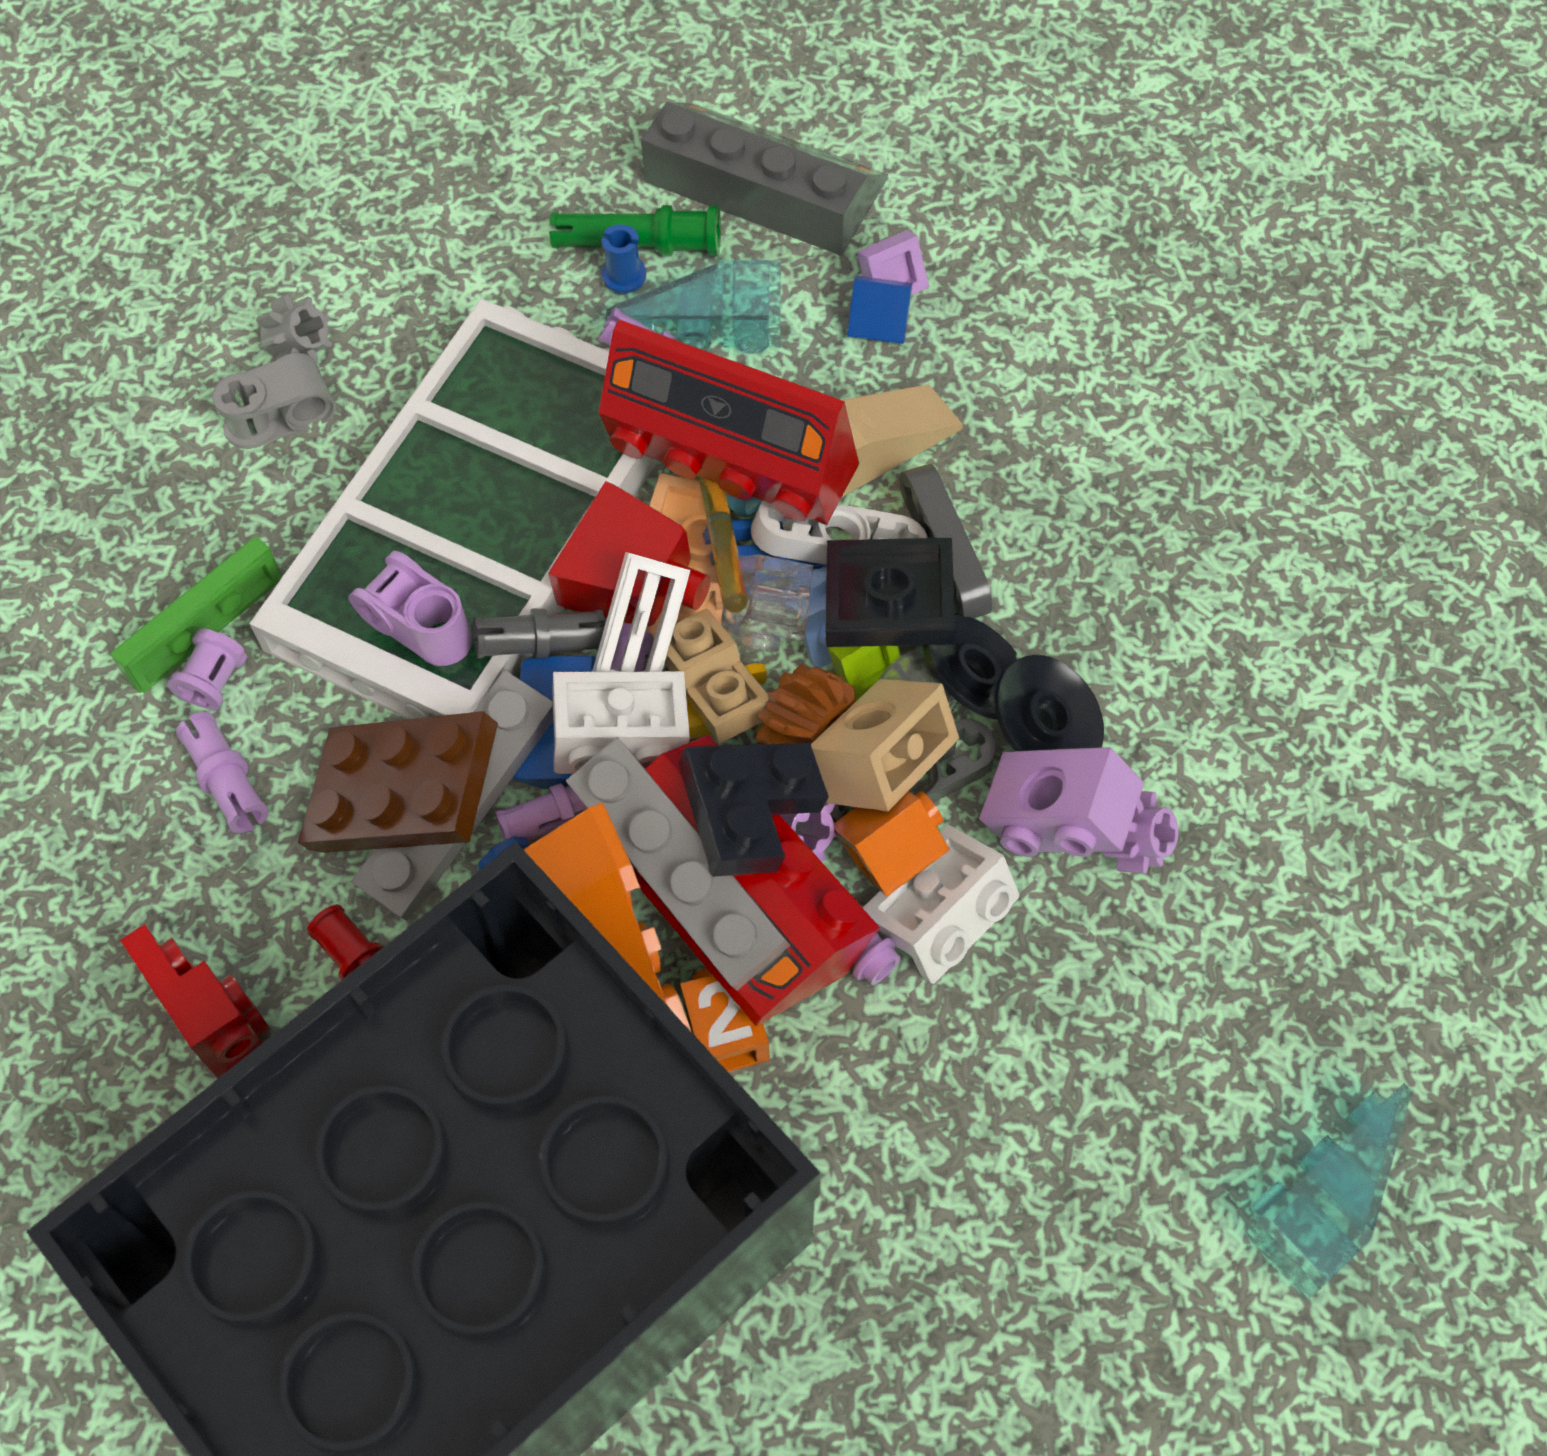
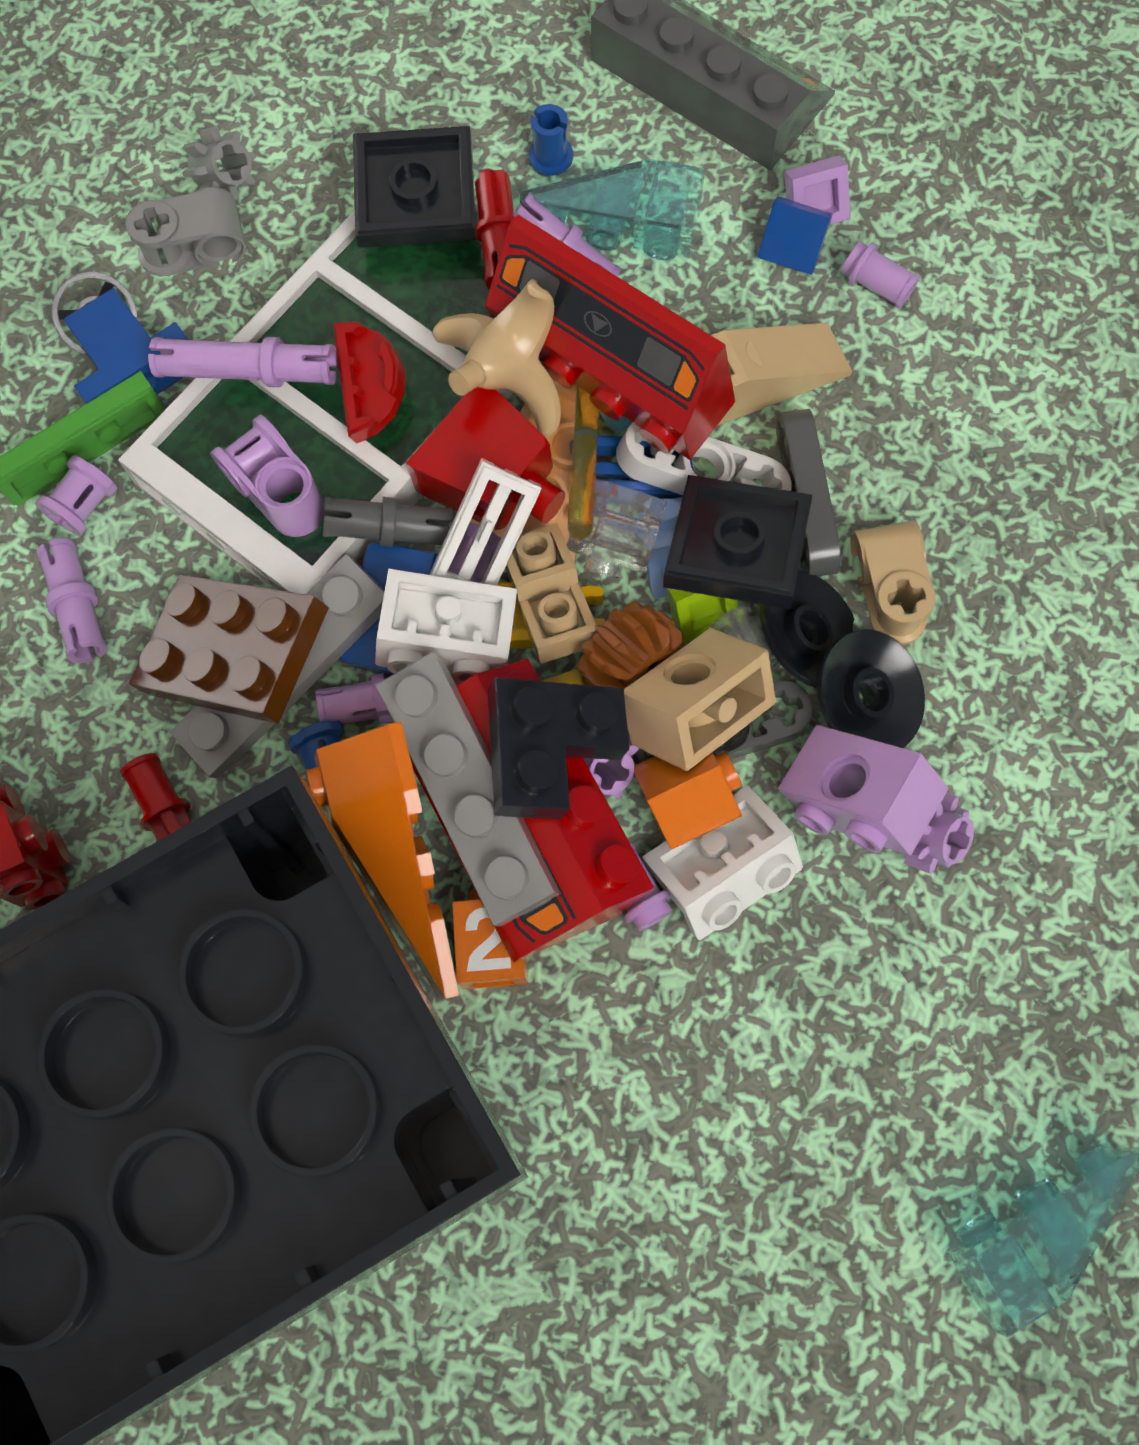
camera: 15 degrees right, 10 degrees up
(226, 512) = (110, 337): none -> blue piece
(386, 503) = (264, 361): none -> lavender pin
(494, 503) = (370, 379): none -> red plate
(501, 319) = (414, 187): none -> black plate
(589, 337) = (495, 215): none -> red axle
(629, 452) = (506, 353): none -> tan piece
(664, 230) = (597, 115): green pin -> none
(969, 332) = (879, 274): none -> lavender pin
(1047, 606) = (895, 571): none -> tan piece

